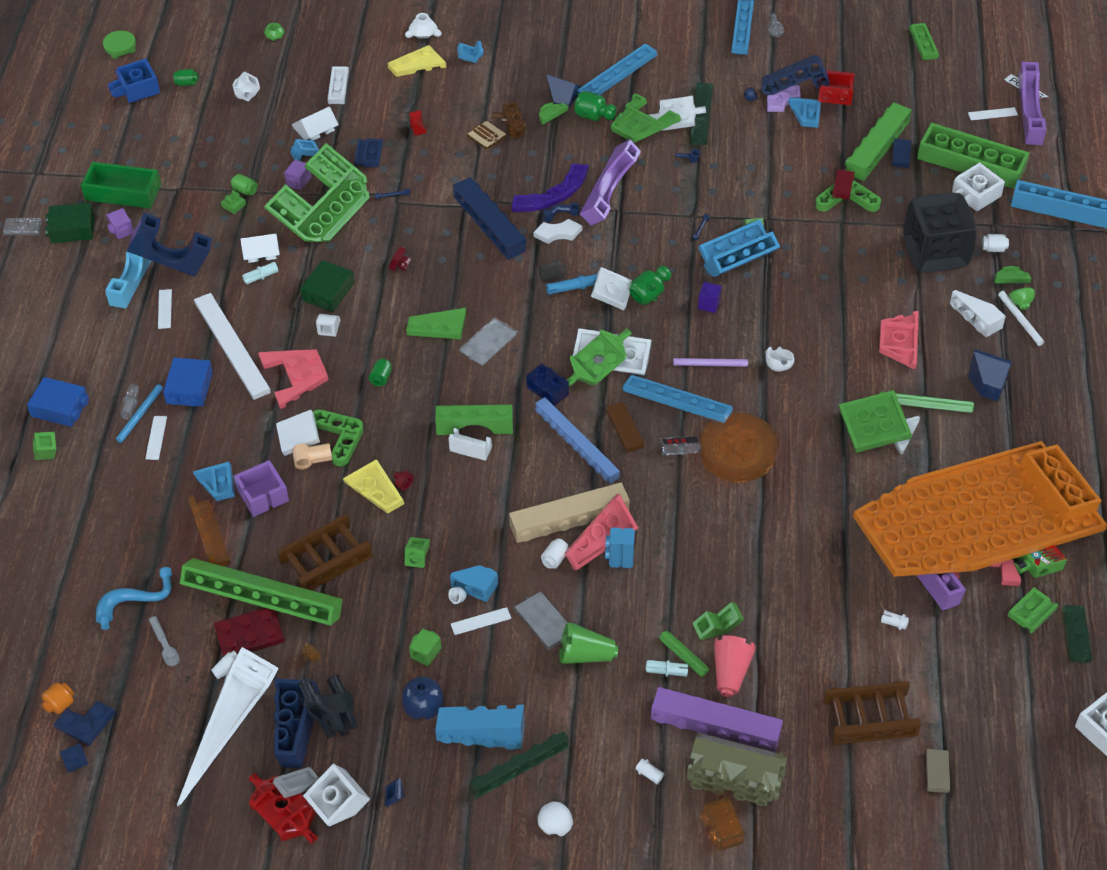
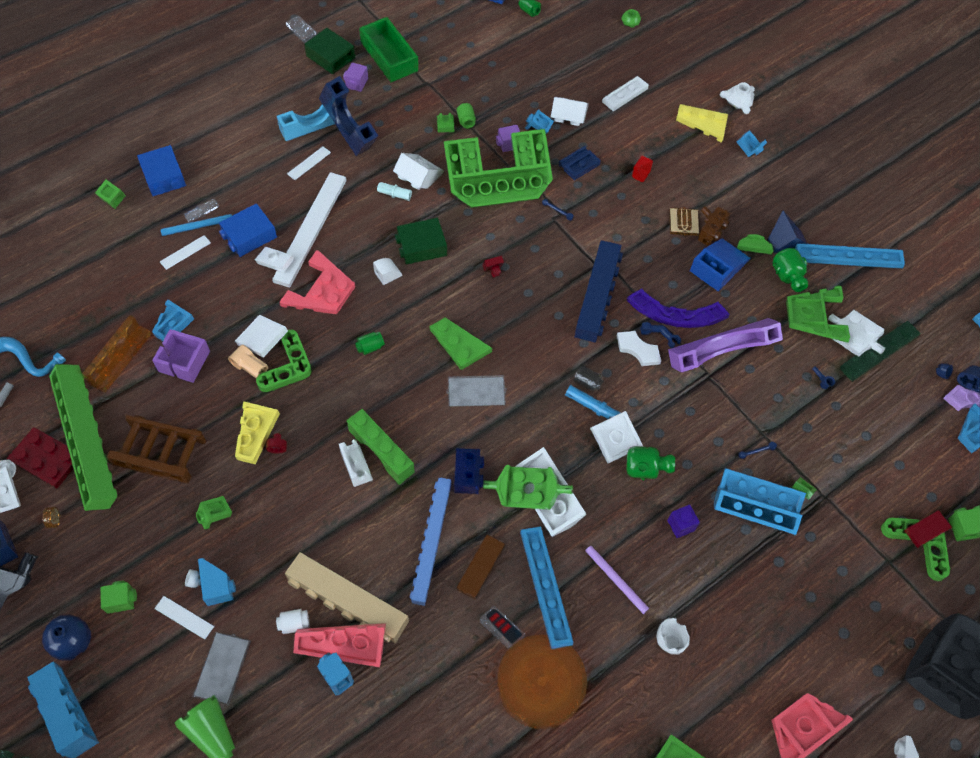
camera: 45 degrees right, 10 degrees up
(236, 382) = (274, 259): none -> white plate
(246, 86) = (557, 43): white brick -> none
(545, 141) = (718, 263): none -> blue slope

